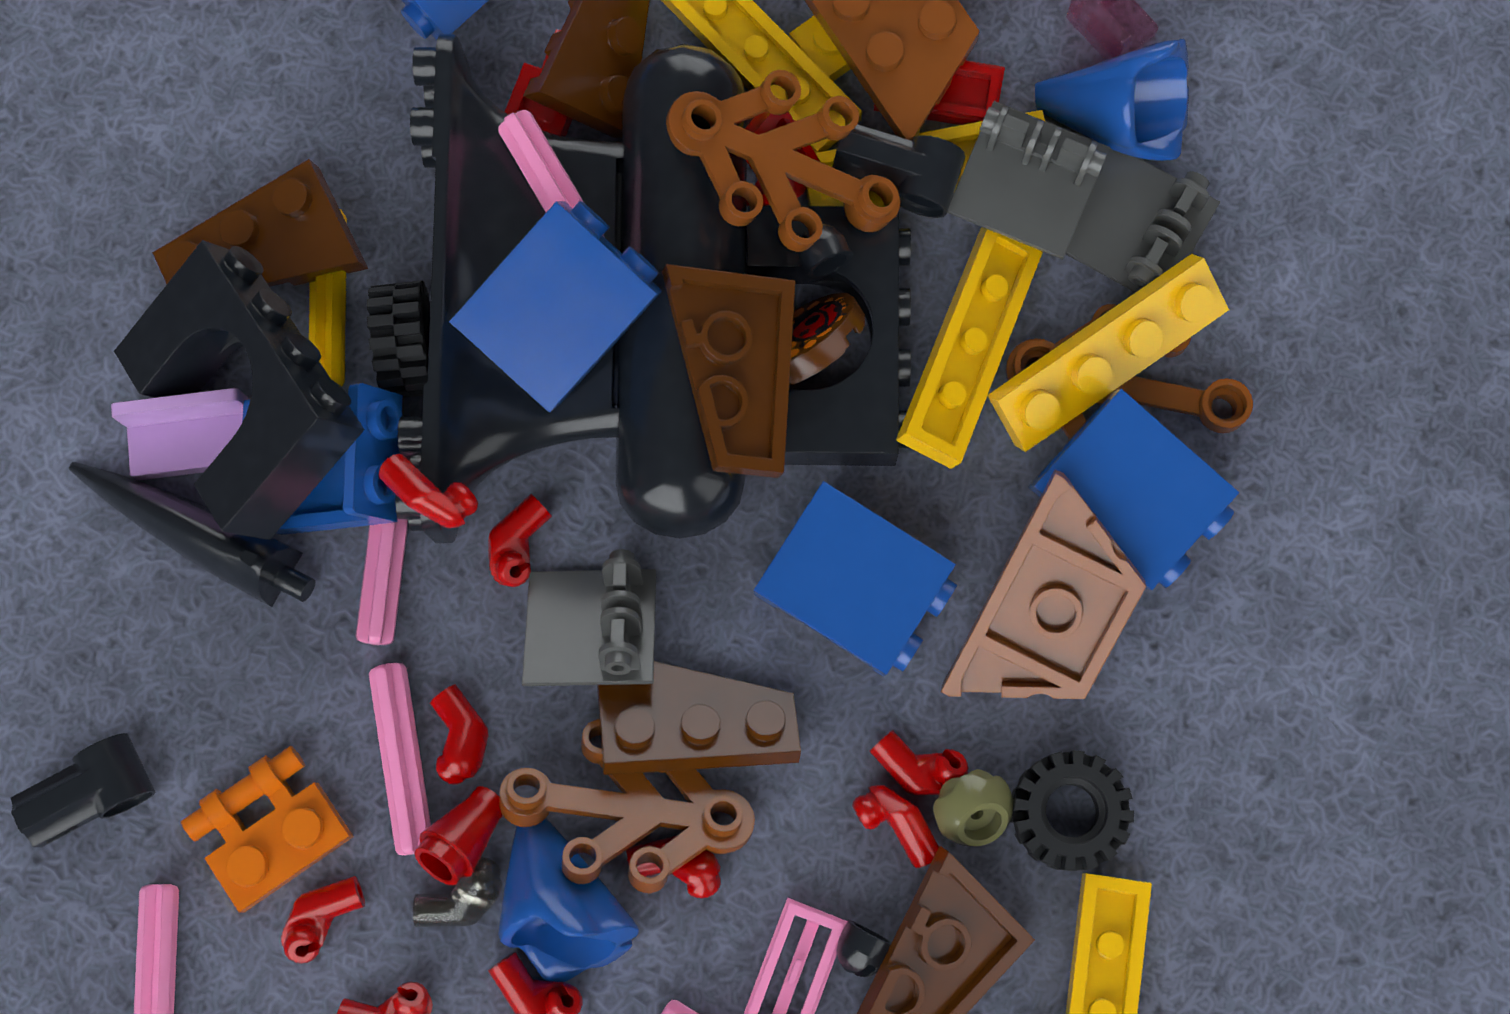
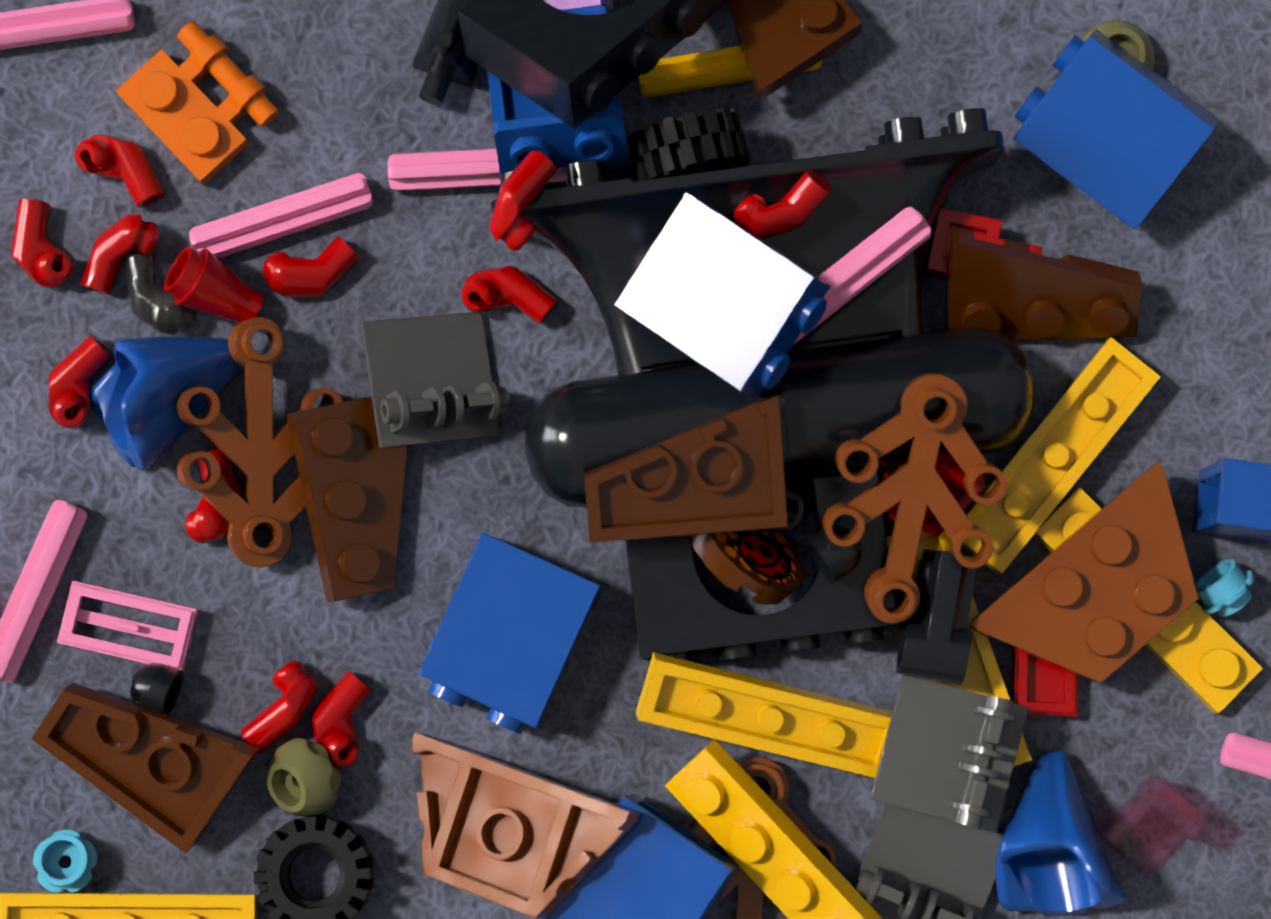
camera: 75 degrees right, 5 degrees up
(399, 934) = (112, 246): none -> red arm
(481, 235) = (785, 214): none -> red arm

